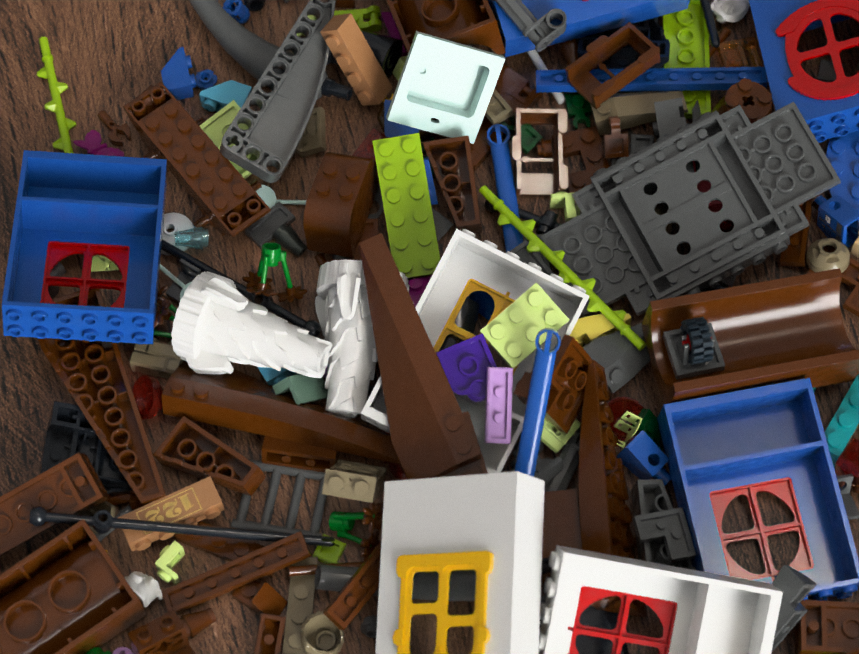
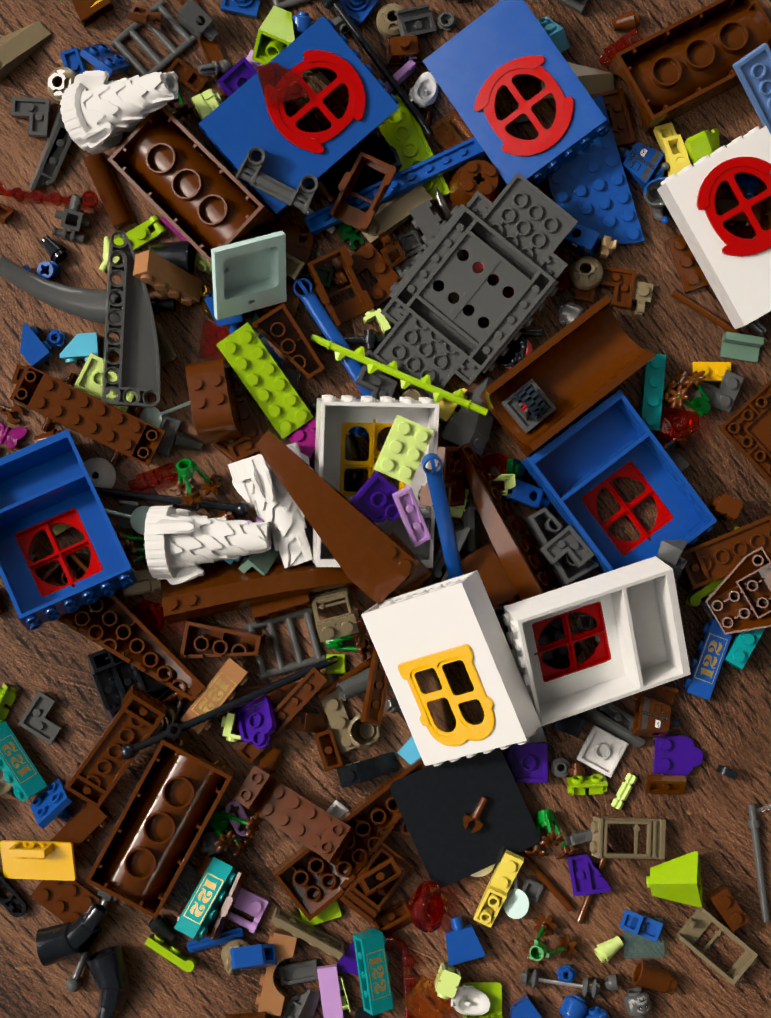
camera: 30 degrees left, 20 degrees up
(144, 587) = (220, 754): white hat -> none
(193, 238) = (116, 475): clear light blue cone -> none
(203, 566) = (257, 722): none -> dark purple plate
(230, 258) = (152, 478): none -> clear red hinge
(652, 632) = (592, 622): none -> dark grey plate

